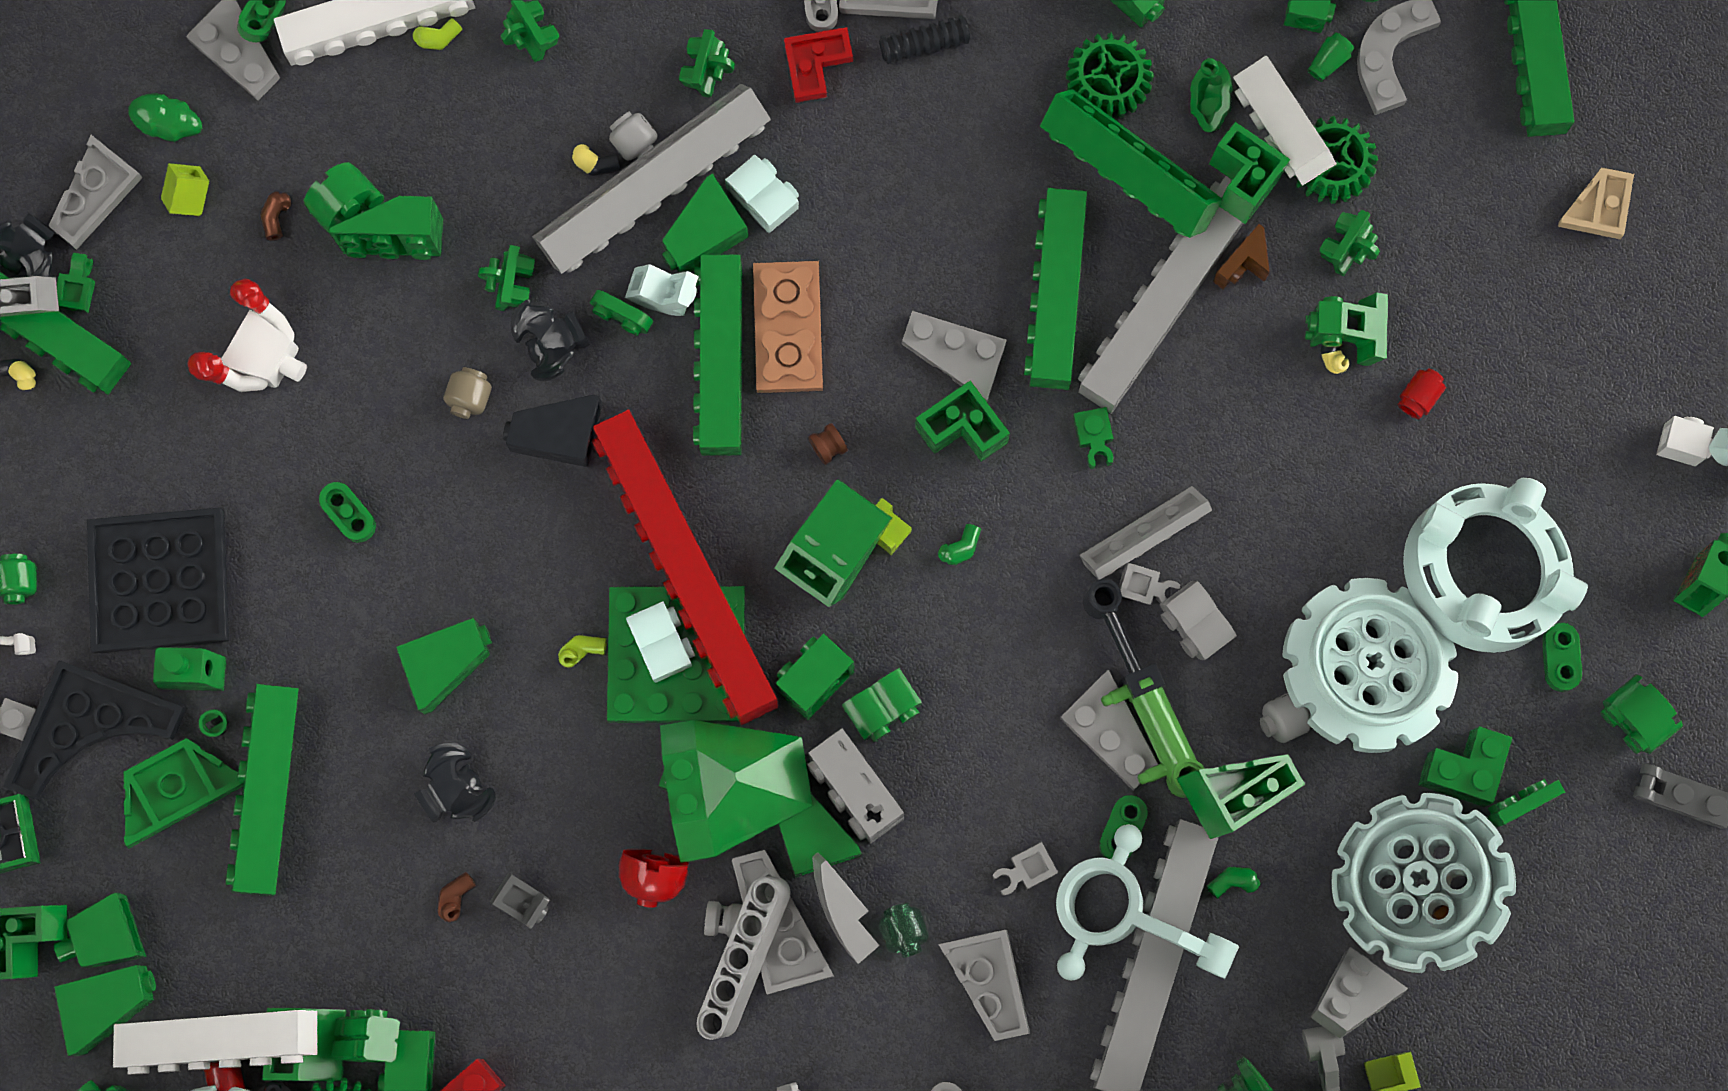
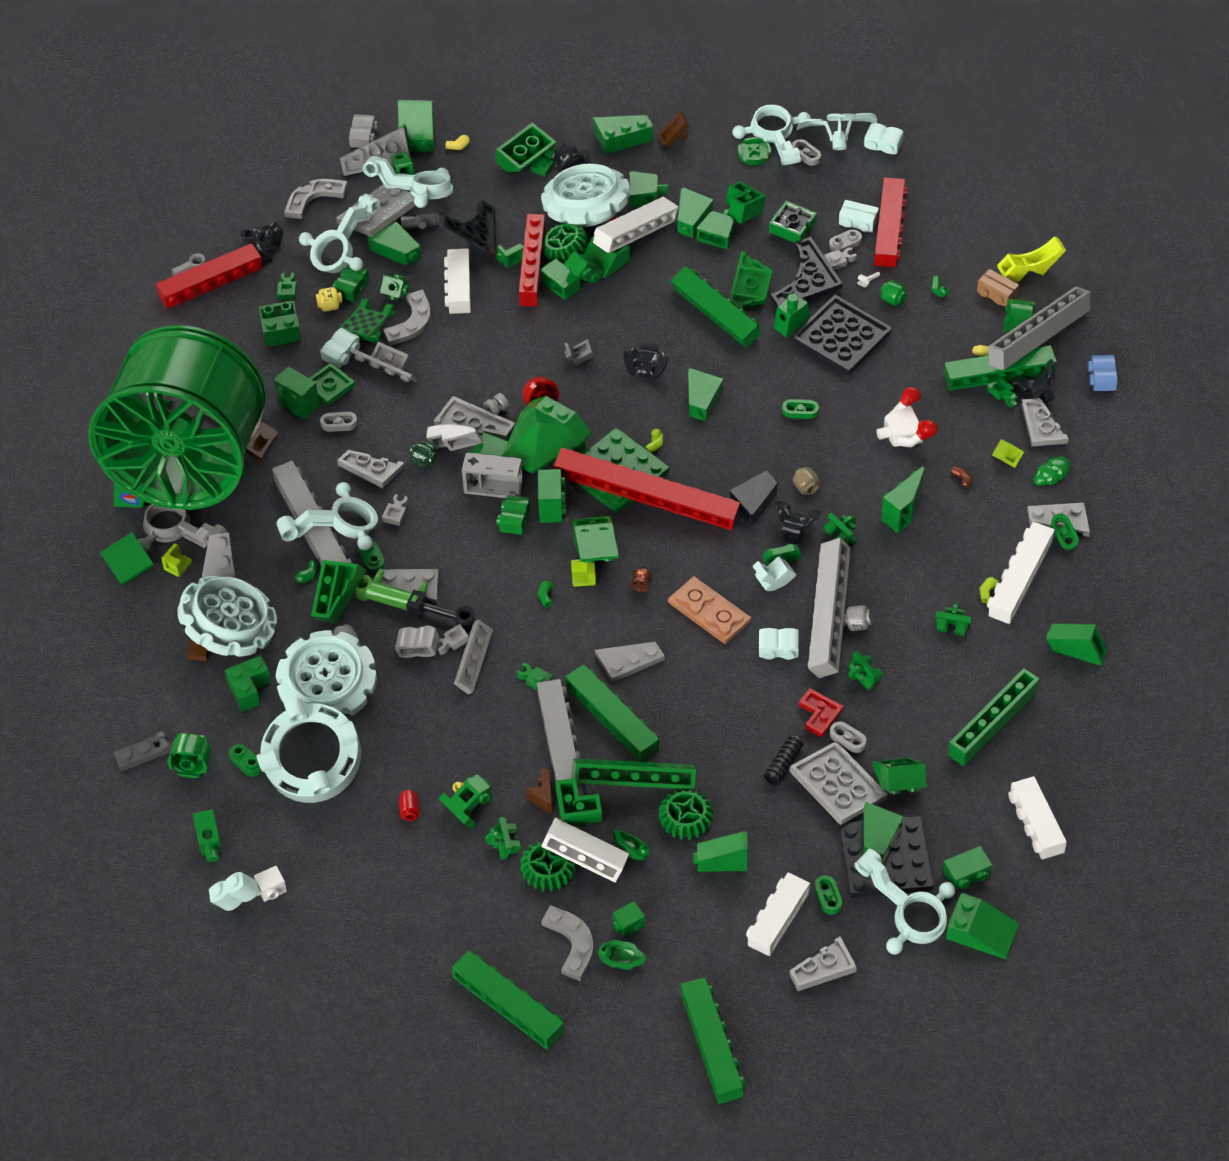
camera: 135 degrees right, 25 degrees down
(208, 716) = (759, 312): green hinge -> none
(341, 196) = (938, 493): green brick -> none
(450, 897) = (608, 336): copper arm -> none
(593, 164) = (863, 597): arm -> none
(659, 641) = (625, 455): light aqua brick -> none
(703, 228) = (786, 610): green slope -> none
(719, 355) = (723, 574): green brick -> none
(730, 967) = (474, 394): light grey beam -> none
(964, 415) = (592, 631): green brick -> none
(1331, 56) = (596, 911): green cone -> none
(1530, 798) = (211, 681): green plate -> none
(1602, 205) = (404, 953): tan wing -> none

